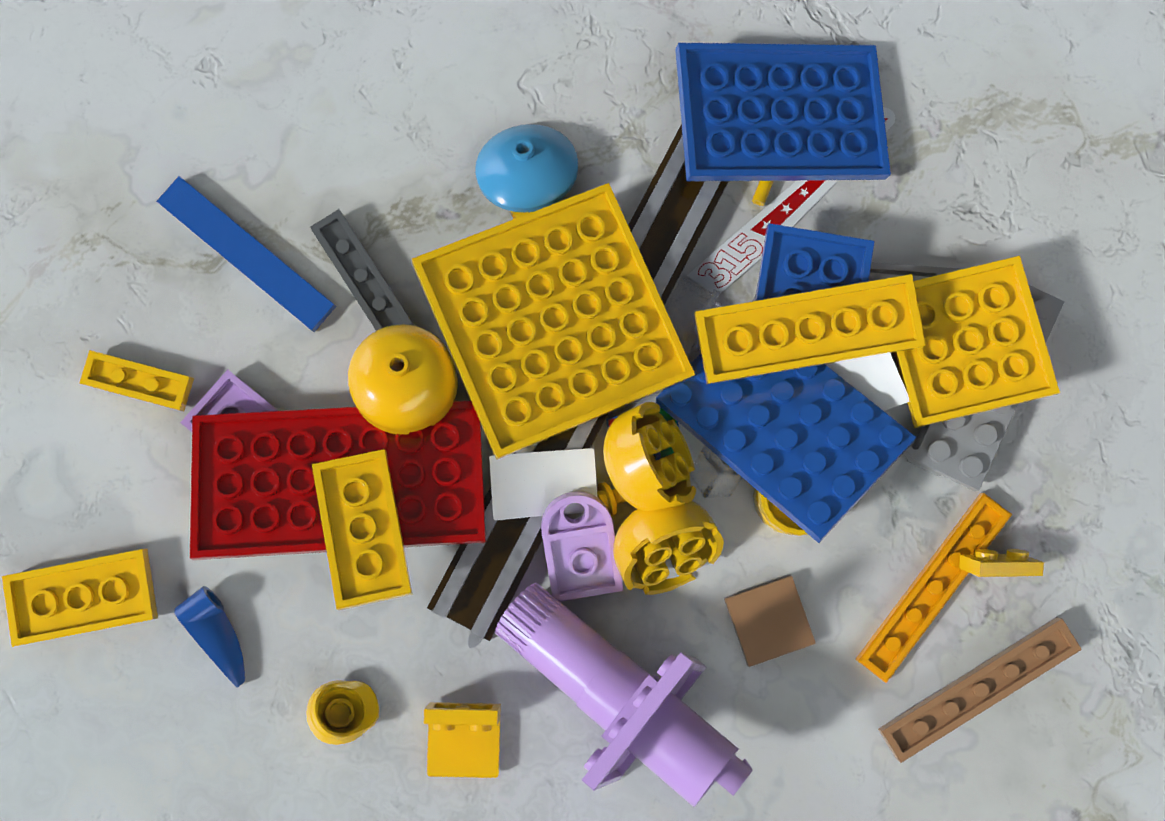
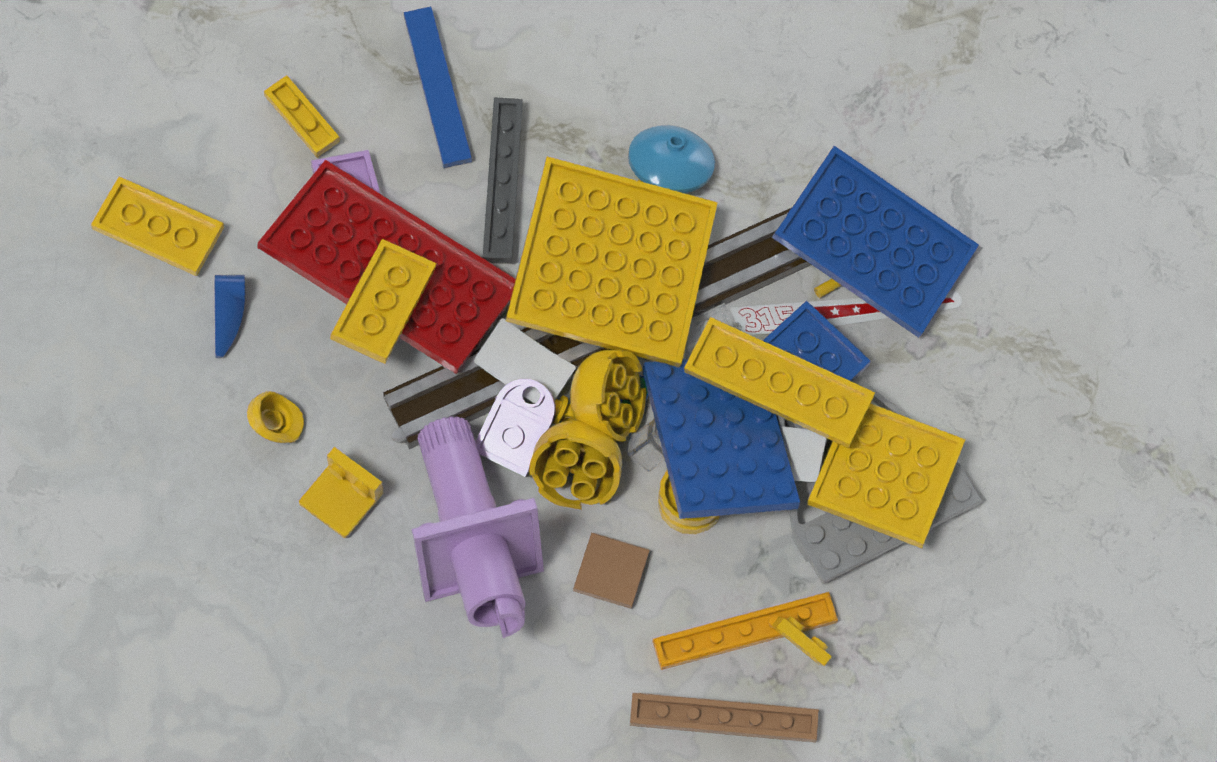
camera: 30 degrees right, 15 degrees down
(402, 379) = (482, 231): yellow cylinder -> none

